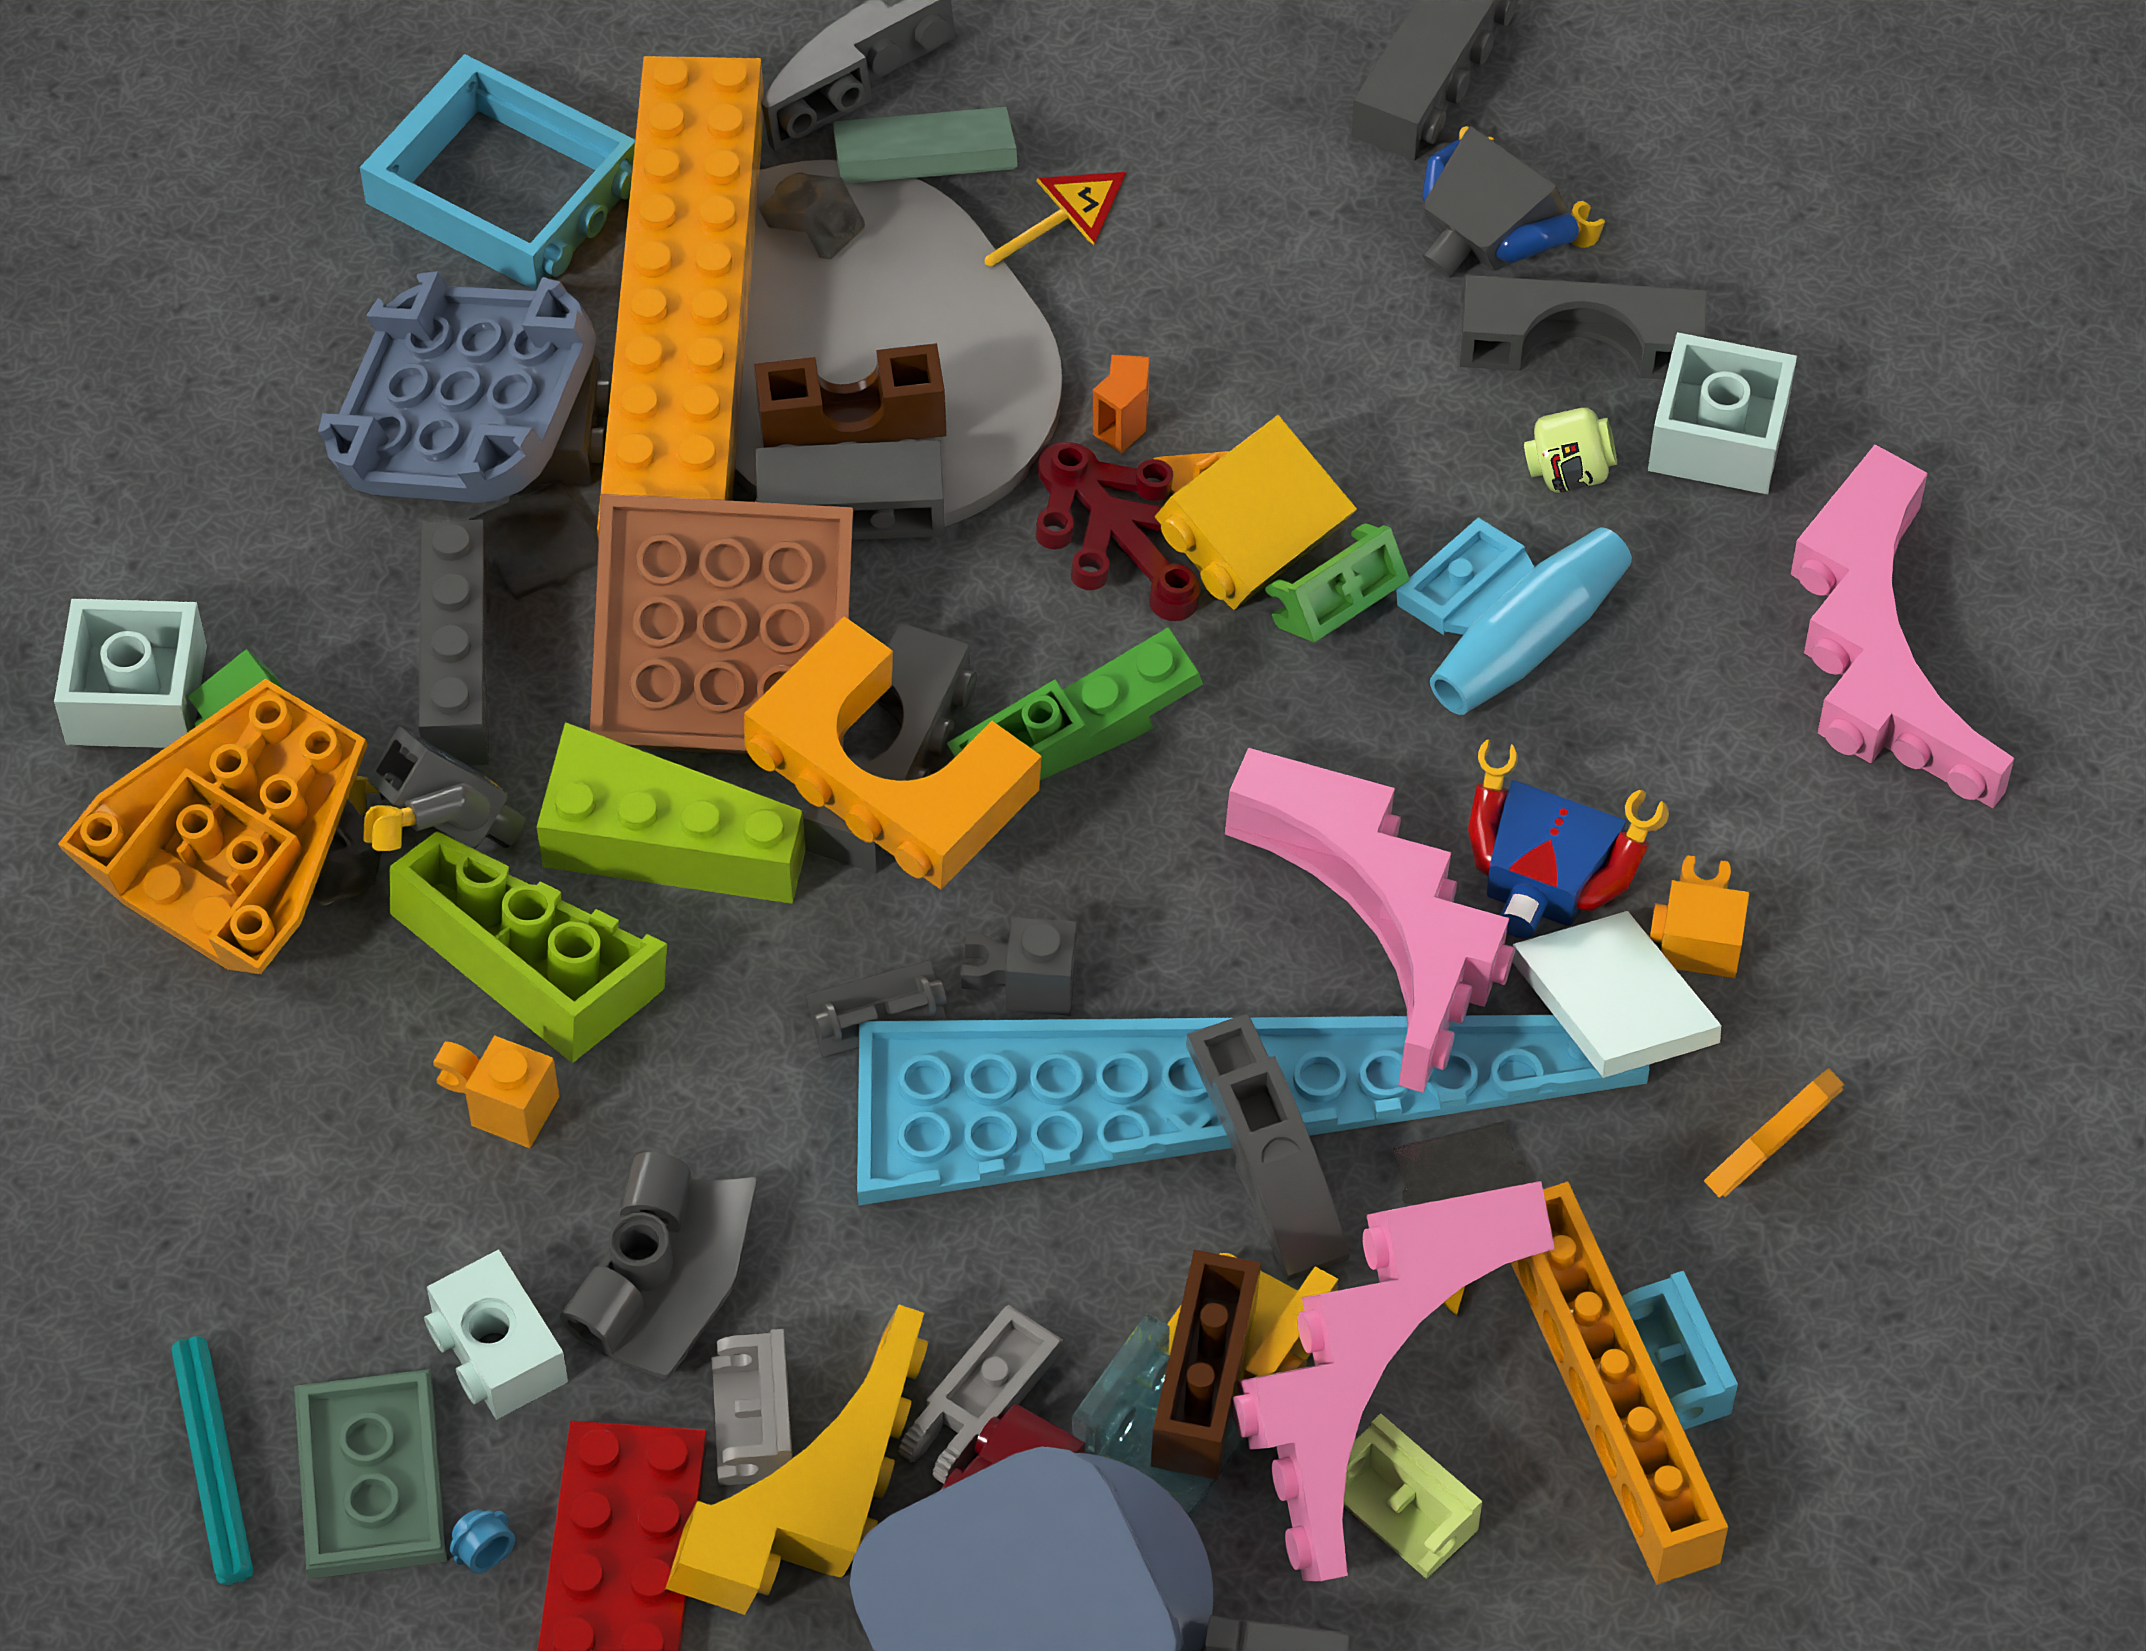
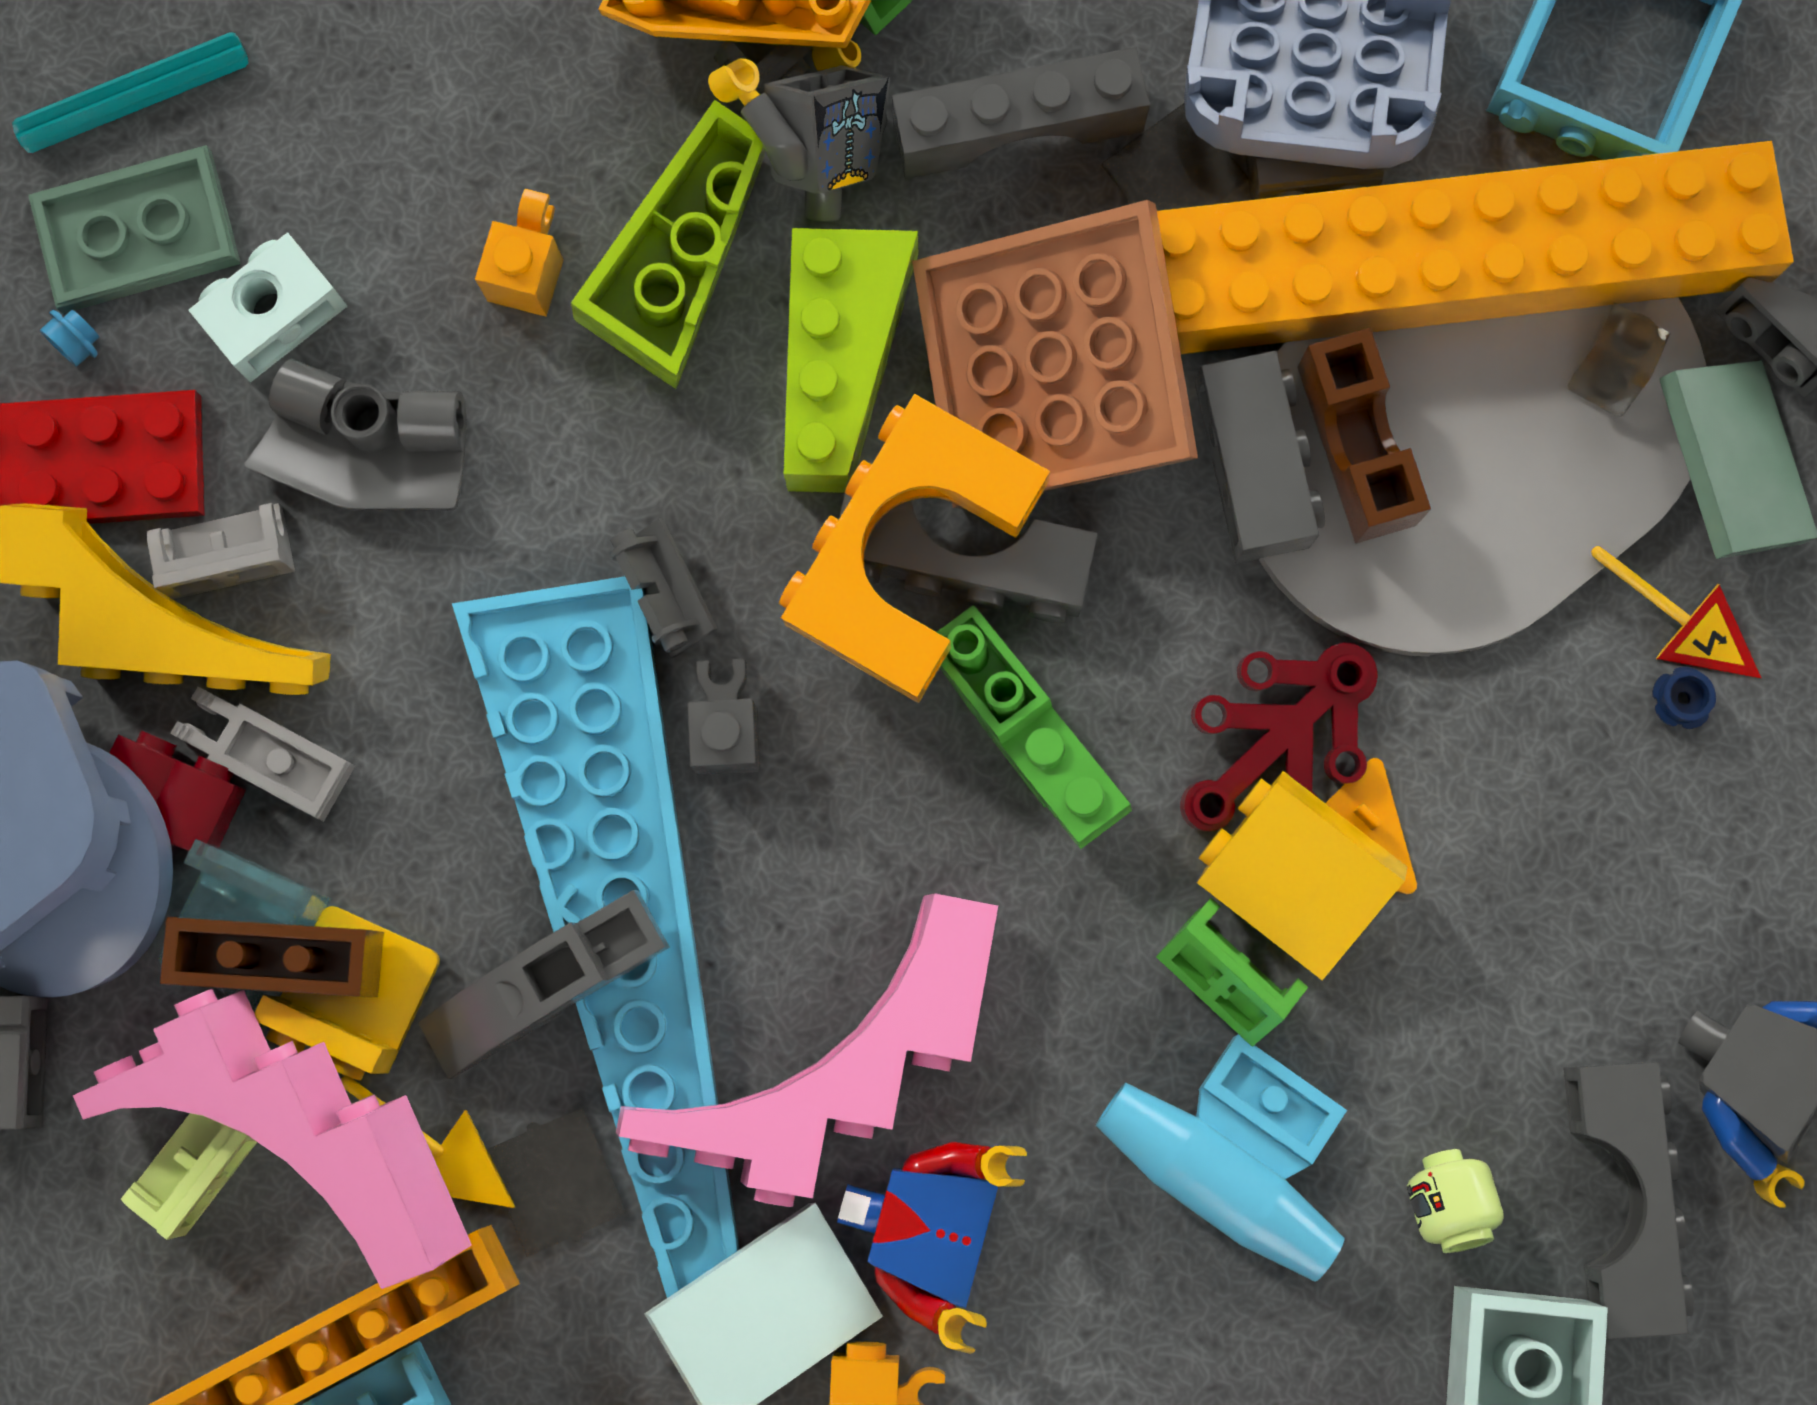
camera: 85 degrees right, 25 degrees up
(1122, 402) = (1430, 719): orange piece -> none
(1135, 211) = (1699, 691): none -> dark blue plate

